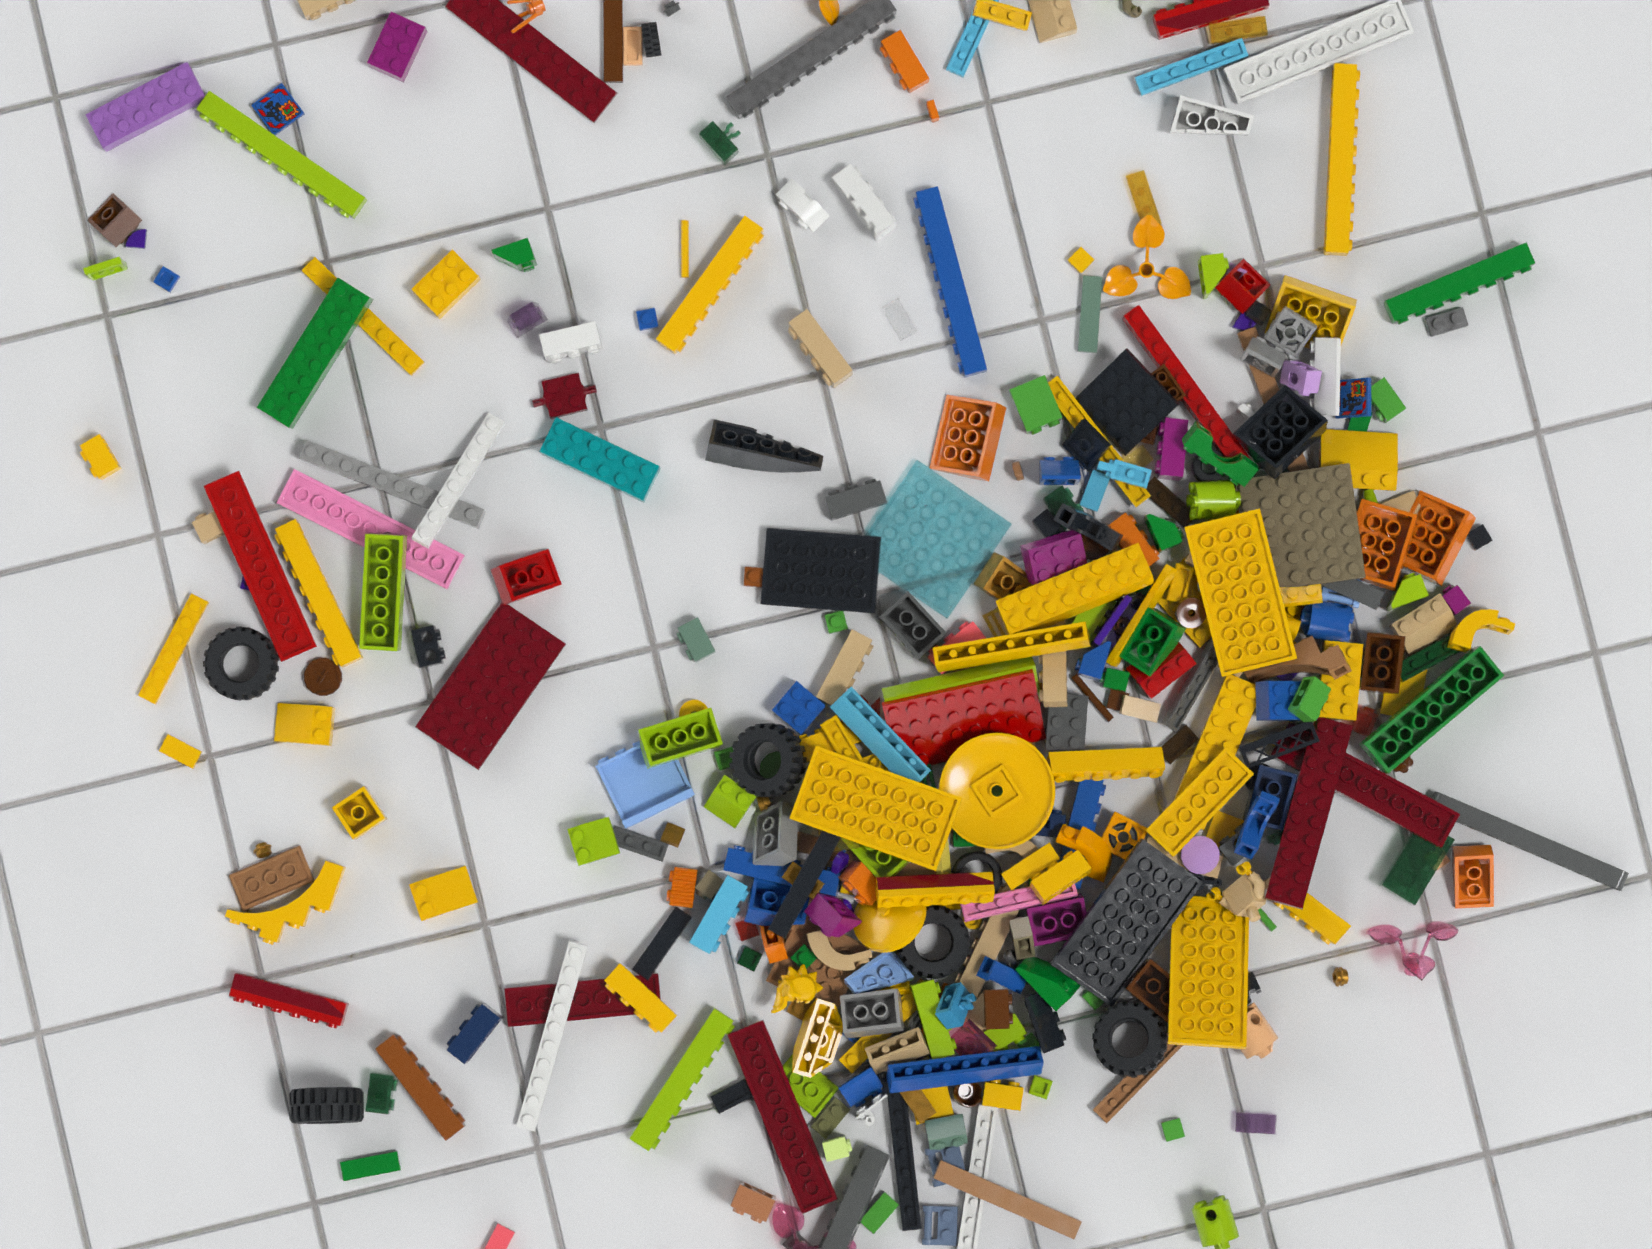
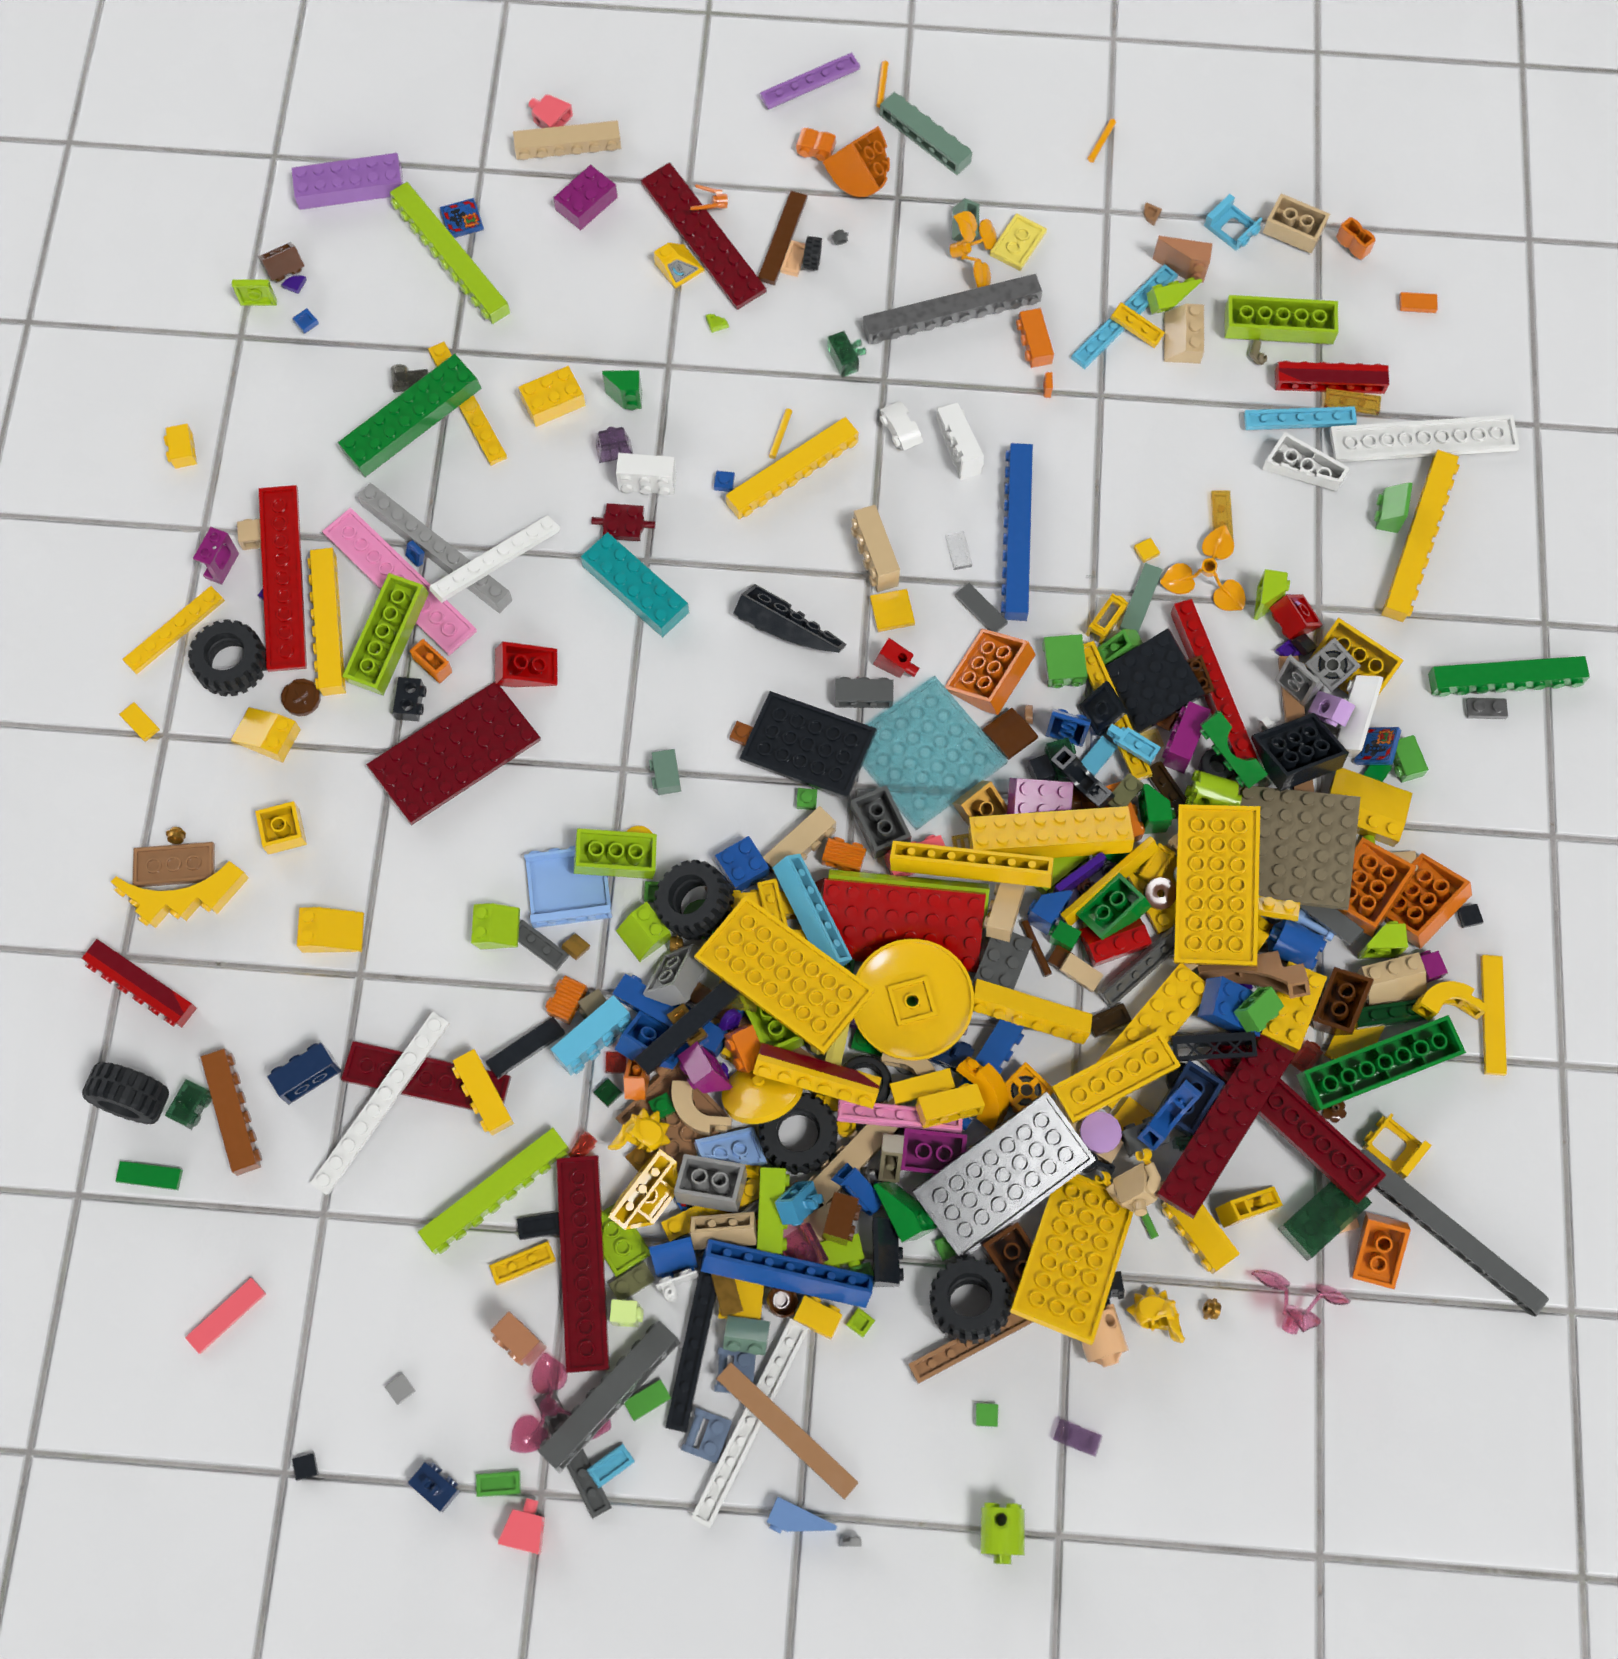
camera: 15 degrees right, 15 degrees down
(185, 559) = (217, 560): none -> magenta window
(293, 311) = (403, 378): none -> clear smoke plate
(375, 496) = (414, 553): none -> blue tile
(435, 603) = (431, 661): none -> orange brick
(518, 91) = (677, 263): none -> yellow slope
(579, 145) = (716, 323): none -> lime tile
(729, 1133) = (522, 1263): none -> yellow tile
(745, 1013) = (583, 1145): none -> clear red cone
(855, 404) = (892, 610): none -> yellow tile
(868, 456) = (895, 660): none -> red torso
(889, 668) = (843, 855): none -> orange brick
(939, 374) = (981, 608): none -> dark grey tile
(1006, 496) = (1010, 733): none -> reddish brown slope
(1063, 346) = (1108, 617): none -> yellow window
(1084, 373) = (1119, 645): none -> bright green slope
(1131, 525) = (1126, 791): none -> olive plate
(1293, 995) = (1157, 1312): none -> yellow head
(1306, 140) = (1393, 507): none -> bright green slope
(1348, 875) = (1248, 1206): none -> yellow slope
(1477, 786) = (1410, 1155): none -> yellow window
(1523, 629) = (1494, 1019): none -> yellow tile

